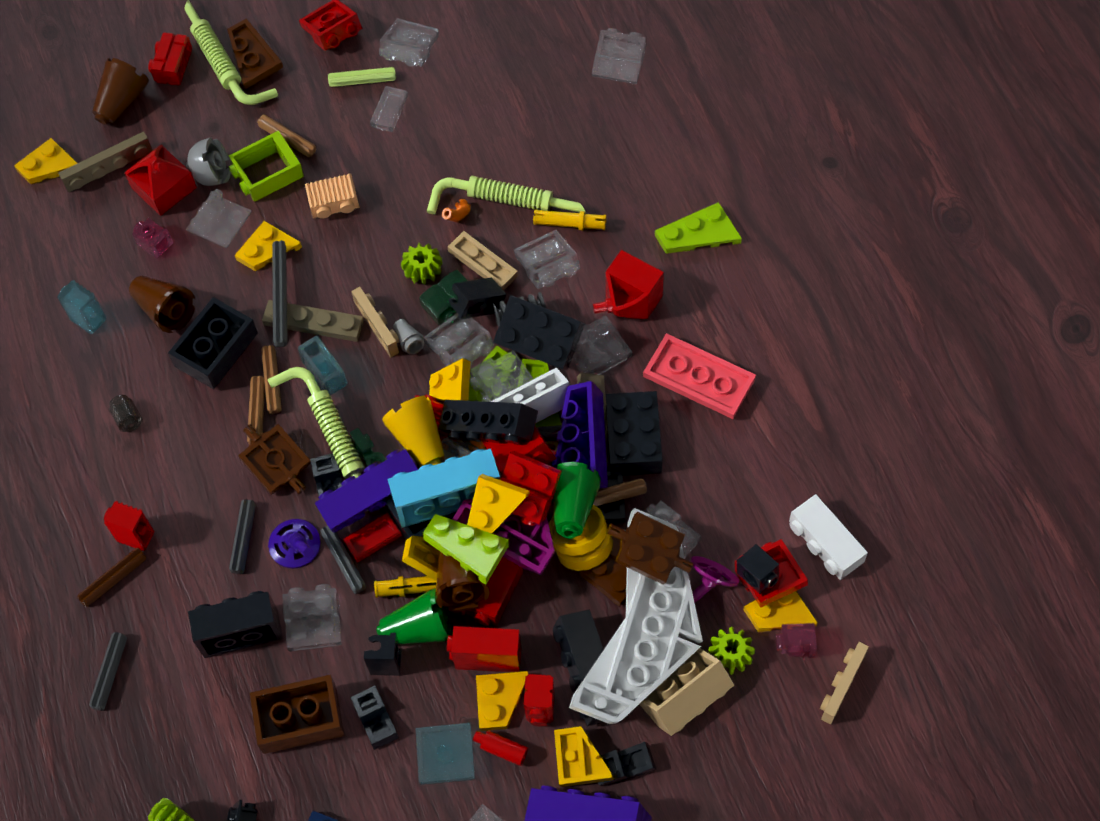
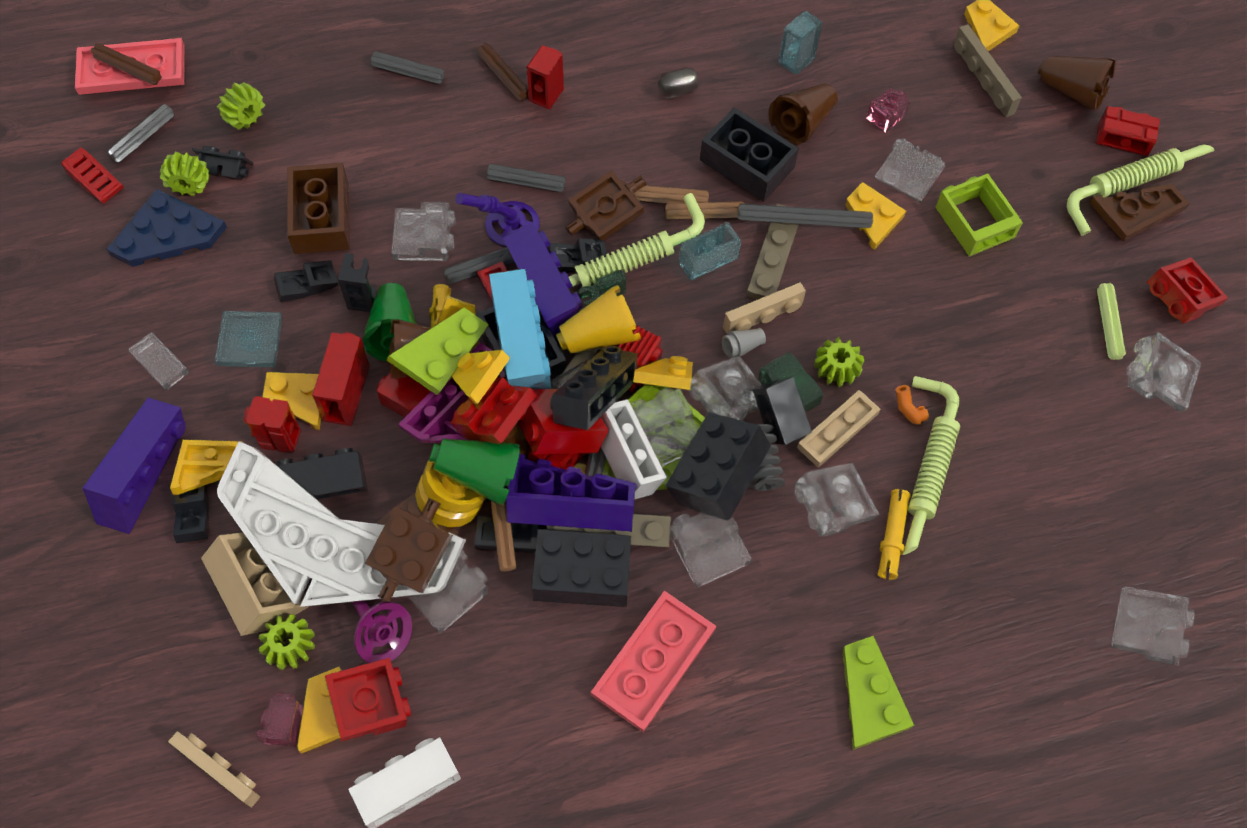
camera: 90 degrees right, 0 degrees up
(160, 179) = (961, 116): red piece -> none
(208, 163) = (981, 155): light grey cylinder -> none
(235, 624) = (421, 157): black brick -> none
(292, 139) = (1023, 239): medium nougat axle -> none
(332, 196) = (935, 277): light nougat brick -> none
(389, 108) = (1064, 347): clear tile -> none
(501, 747) = (241, 392): red cylinder -> none
(631, 288) = (777, 584): red piece -> none
(758, 569) = (361, 675): black brick -> none

